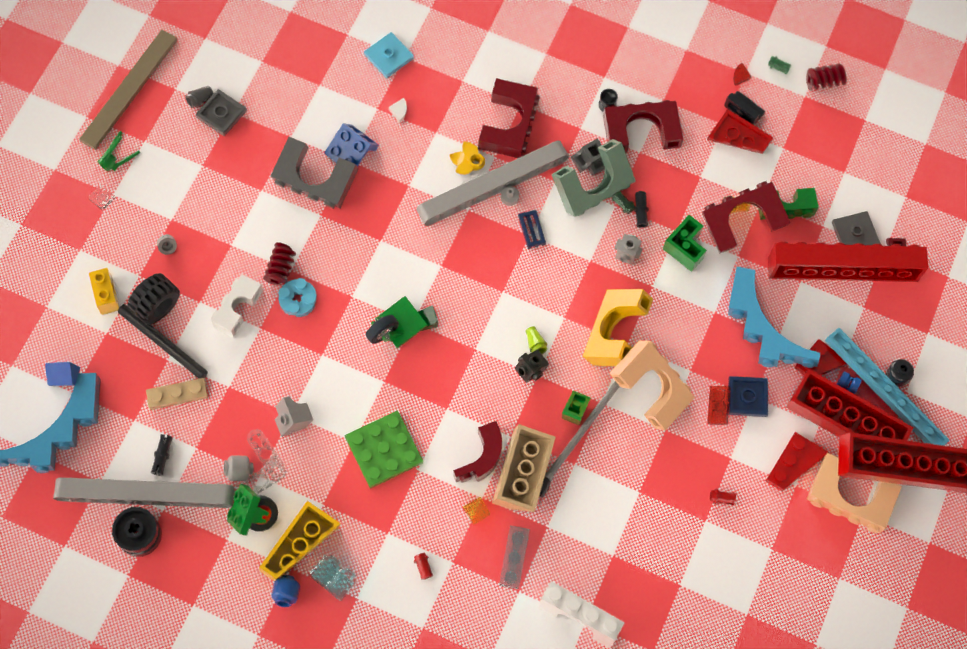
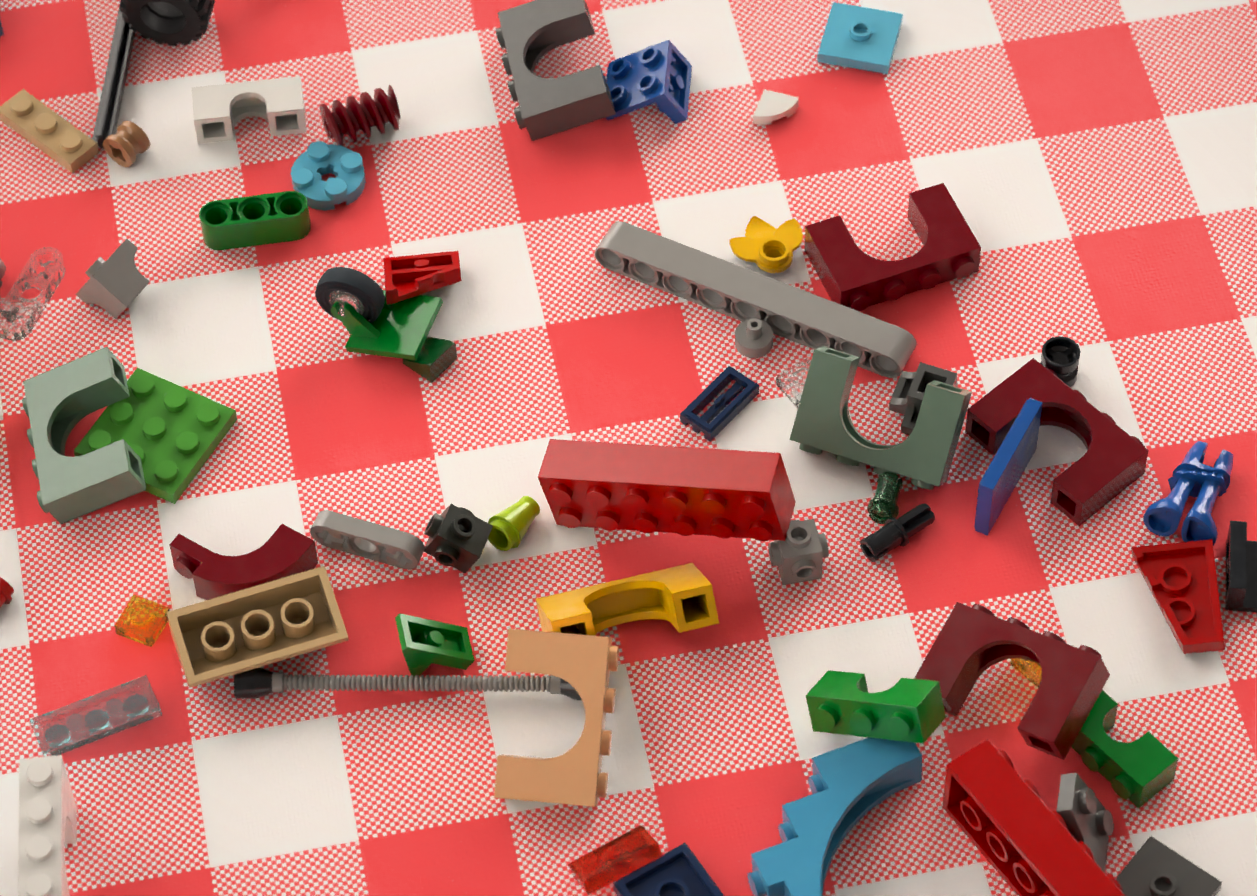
camera: 60 degrees right, 15 degrees down
(215, 366) = (126, 143): none -> medium nougat wheel
(298, 349) = (255, 220): none -> green beam
(341, 479) = (54, 406): none -> arch
(383, 296) = (419, 274): none -> red wing
(503, 400) = (367, 539): none -> light grey beam
(545, 193) = (792, 381): none -> clear plate
(577, 275) = (667, 489): none -> red brick
(648, 151) = (1007, 466): none -> blue tile
(682, 243) = (884, 618): green brick -> none
(692, 94) = (1193, 480): none -> blue piece
(737, 265) = (902, 713): none -> green arch
(817, 233) = (1085, 816): none -> dark grey wing

